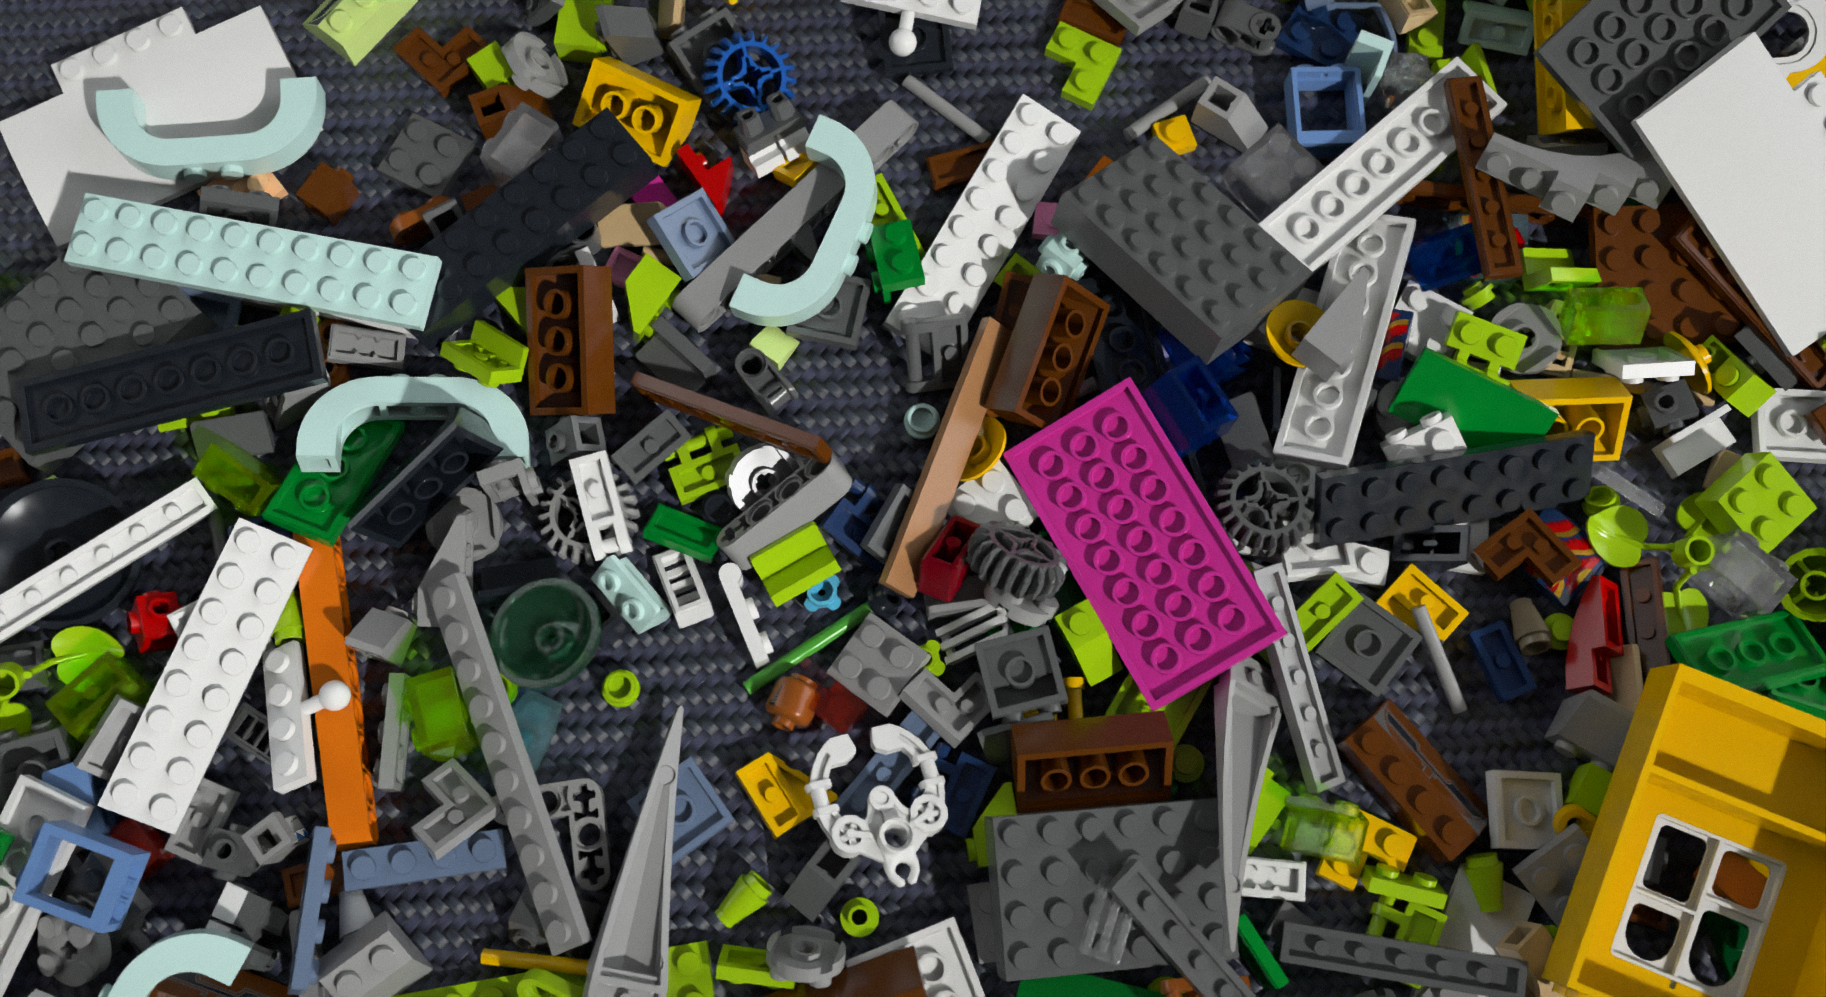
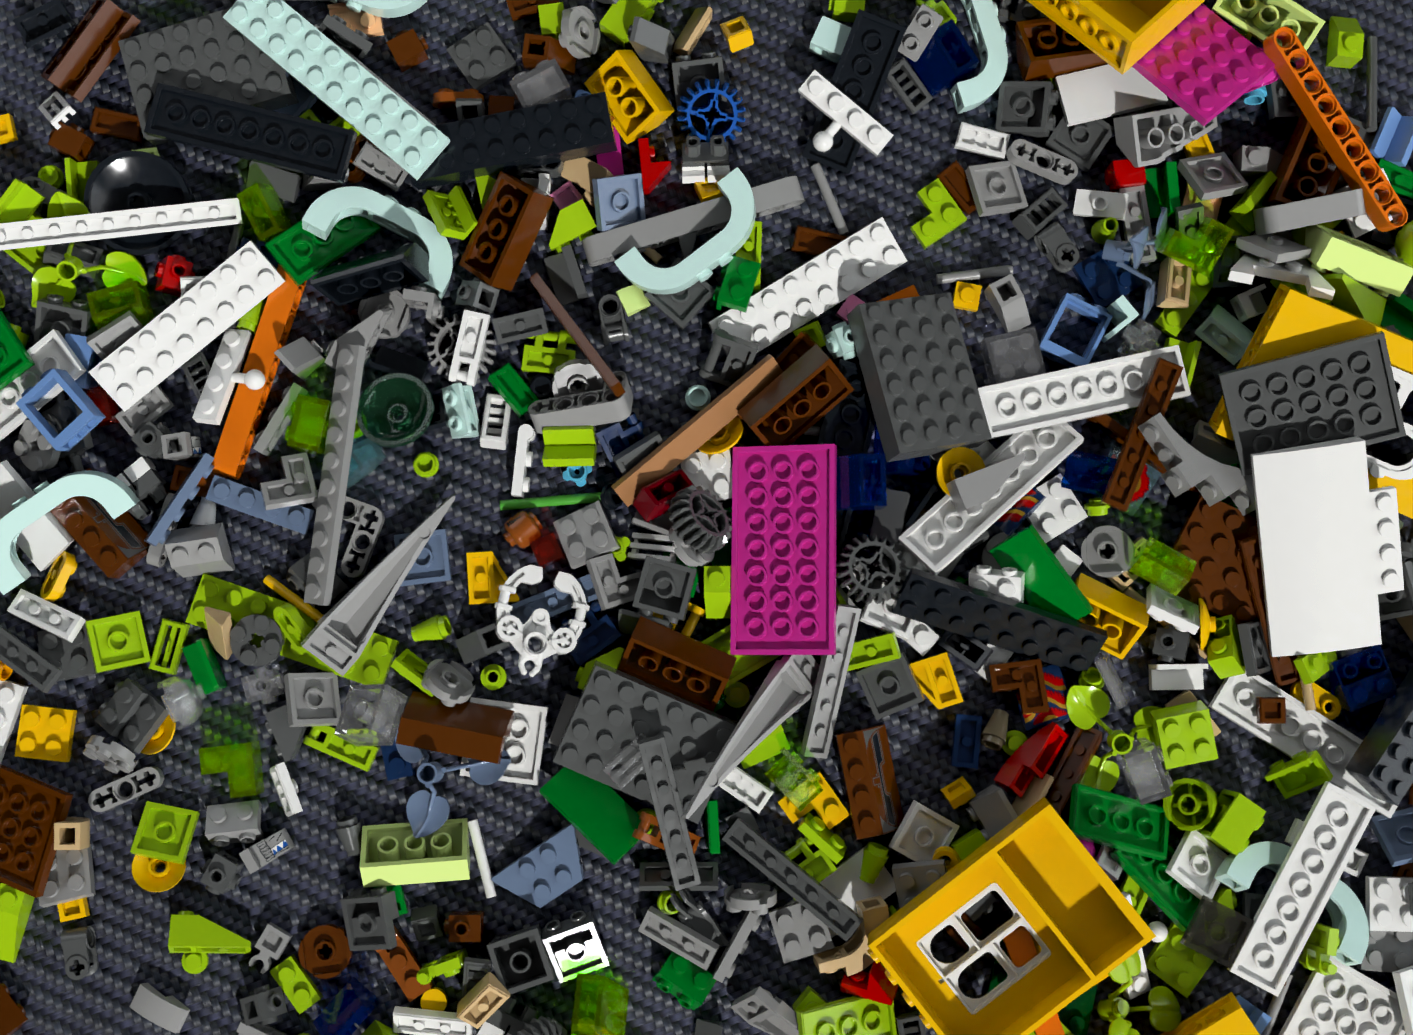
camera: 30 degrees right, 10 degrees up
(1439, 659) = (928, 717): light grey bar -> none
(1486, 342) = (1079, 540): lime plate -> none
(1532, 731) = (958, 792): none -> yellow plate
(1554, 270) = (1154, 517): lime panel -> none

